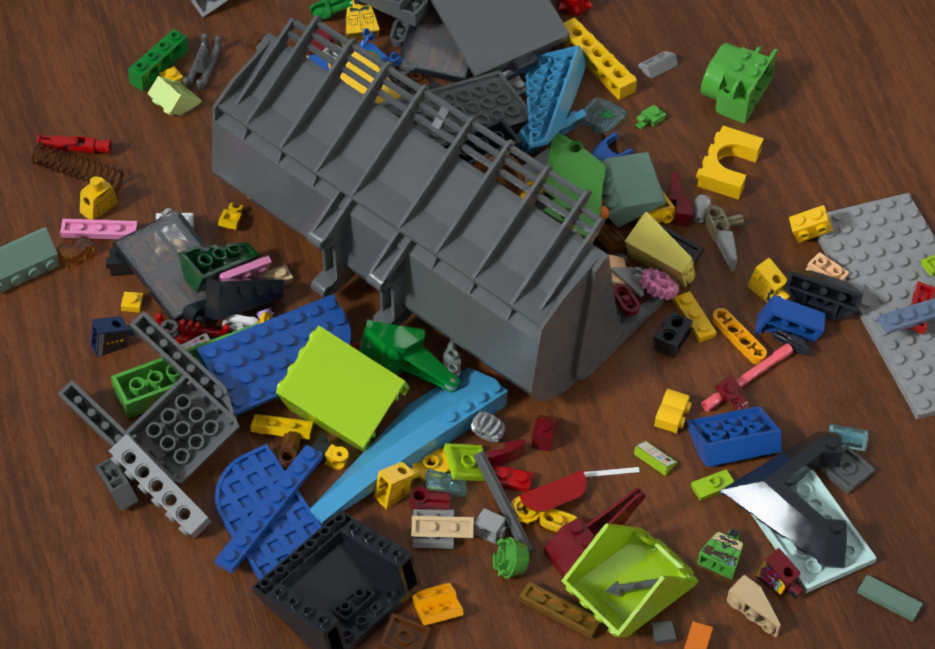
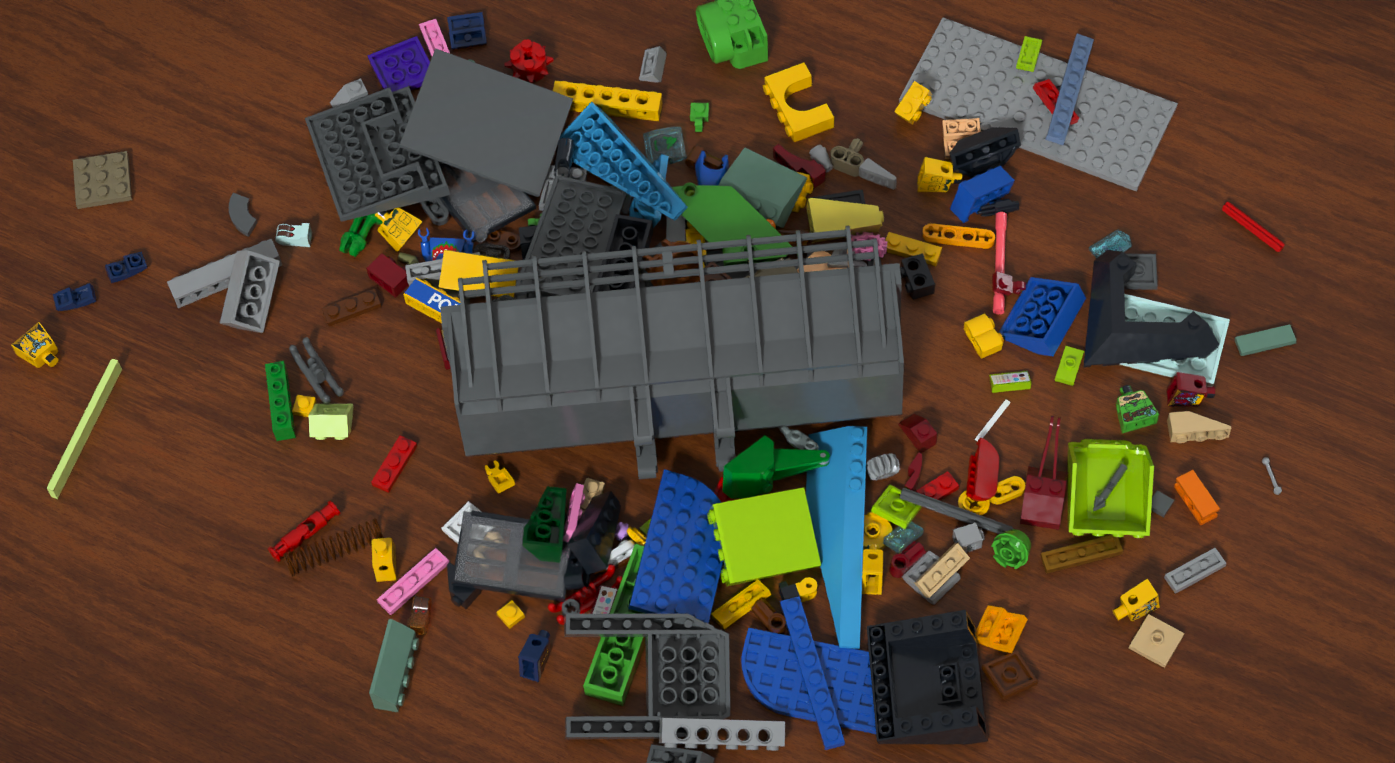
camera: 40 degrees left, 10 degrees up
(179, 154) = (394, 464): none -> red plate

